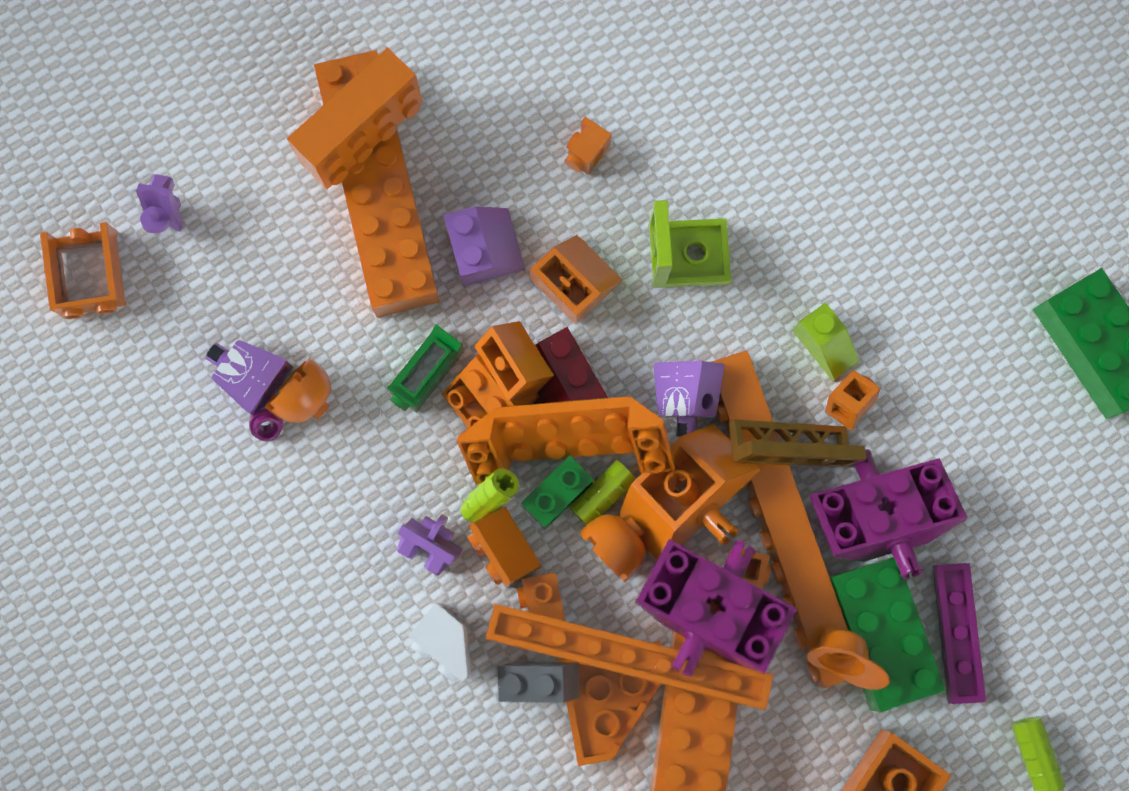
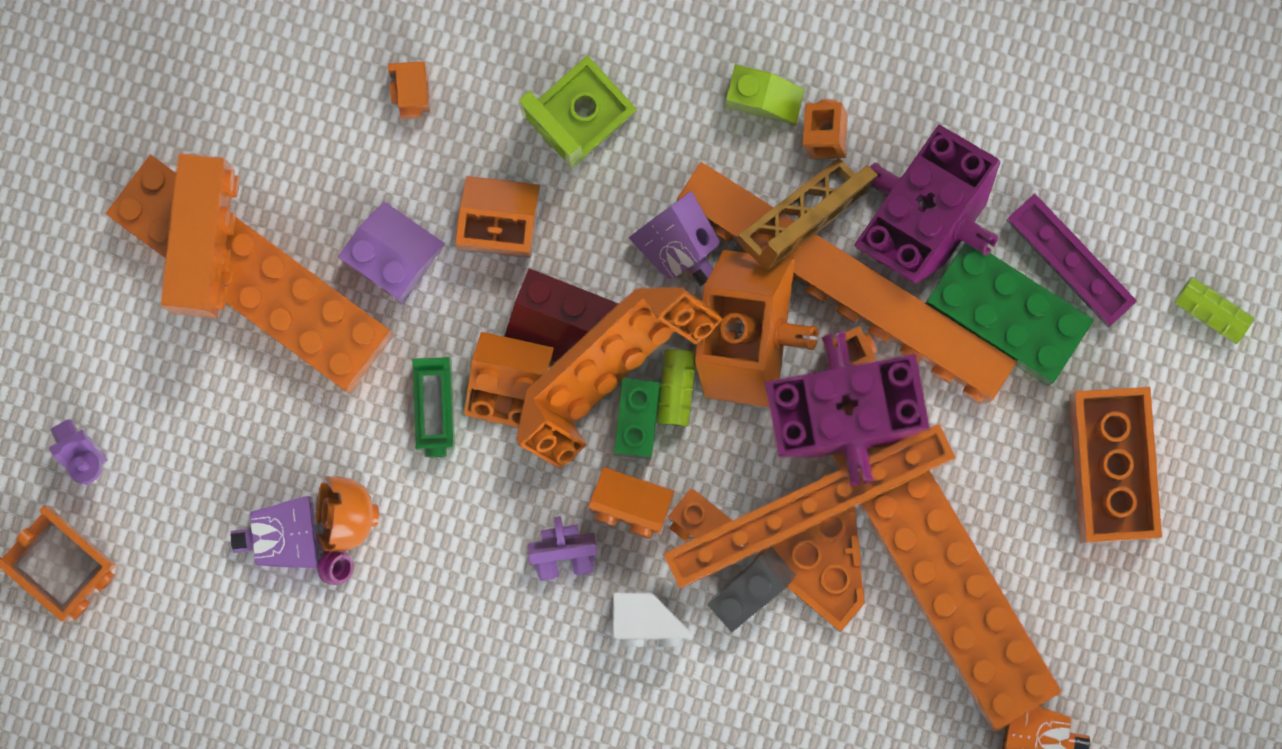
camera: 35 degrees left, 5 degrees up
(490, 495) = (582, 469): lime axle -> none
(513, 360) = (508, 335): orange brick -> none
(616, 543) = (723, 420): orange cylinder -> none
(847, 657) = (990, 359): orange piece -> none

